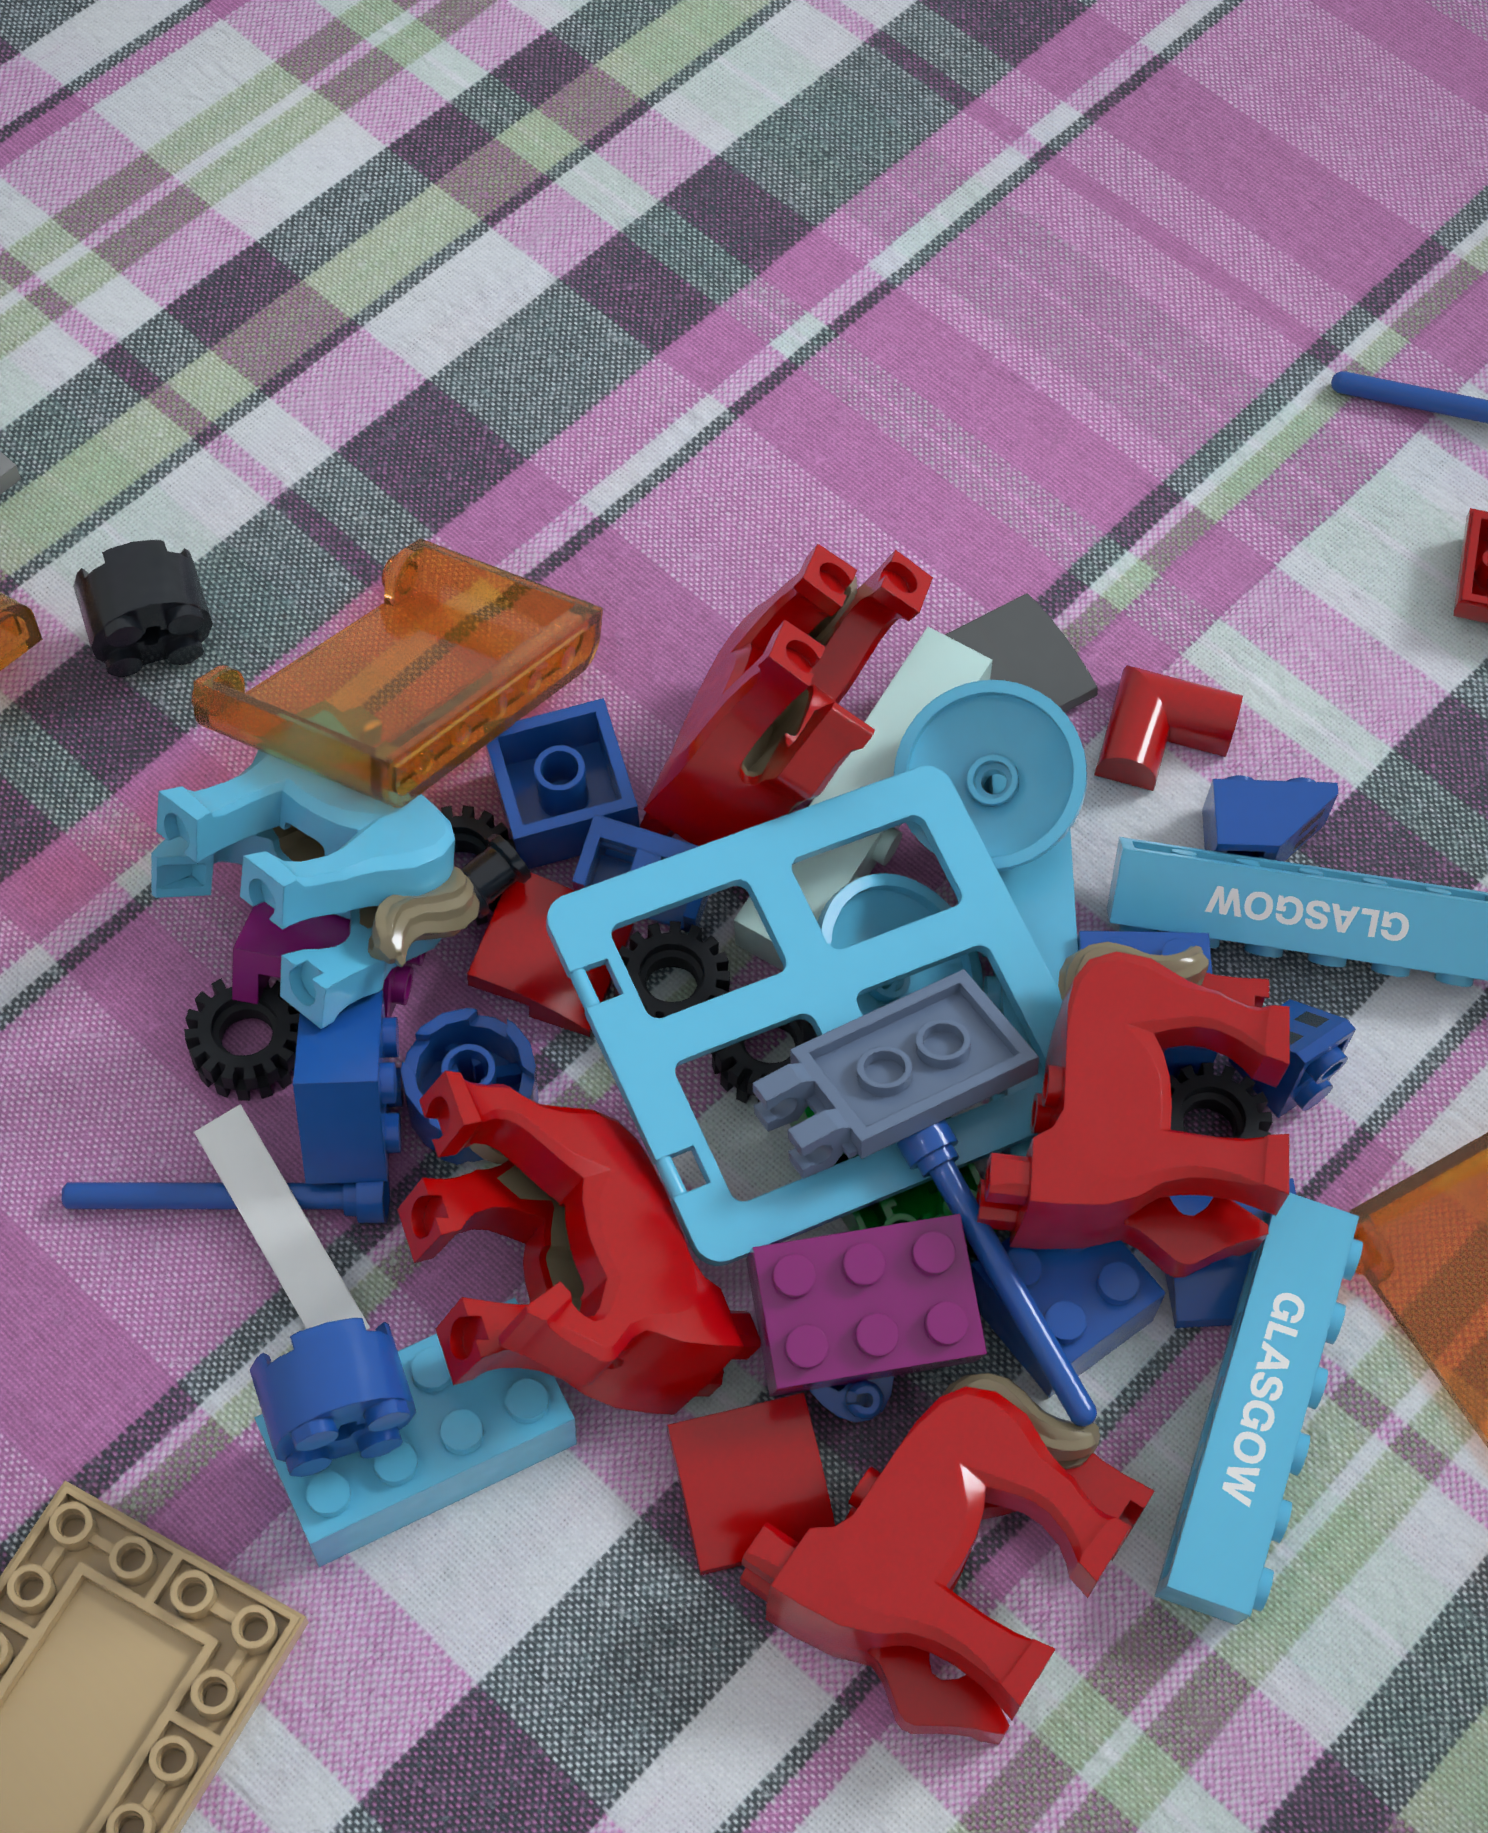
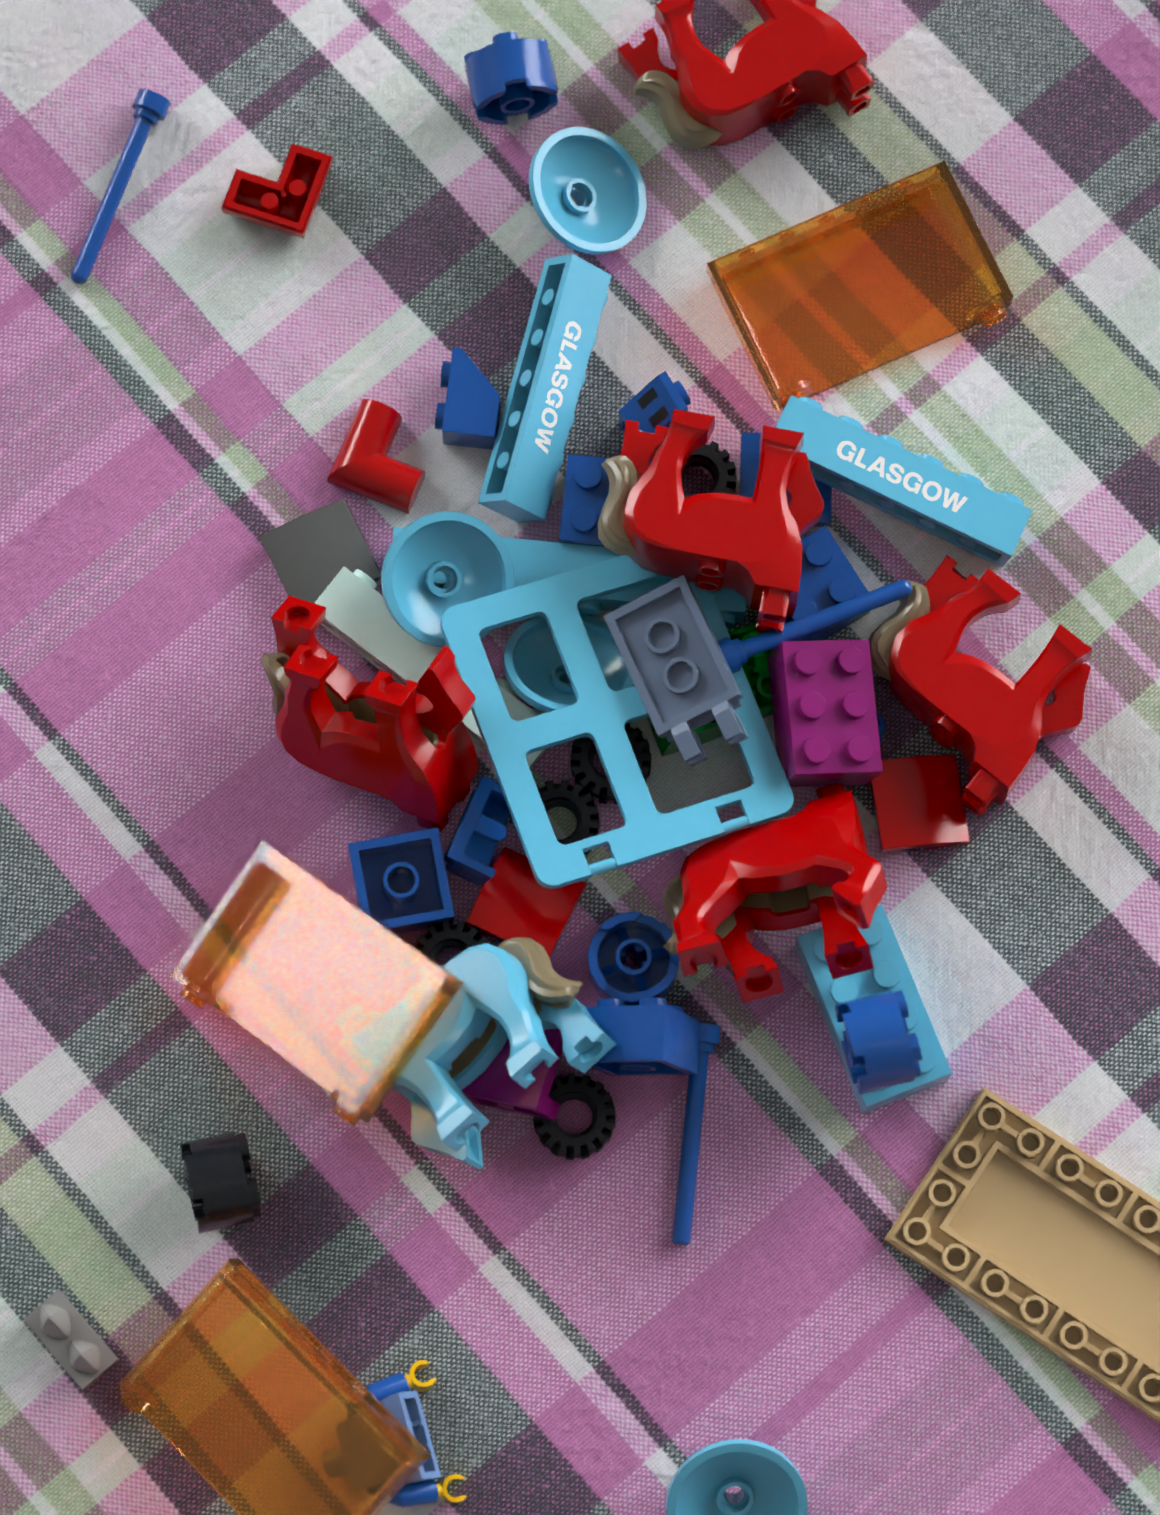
camera: 80 degrees left, 15 degrees up
(276, 1220) = (721, 1095): white sticker -> none
(495, 871) = (479, 929): black bush -> none

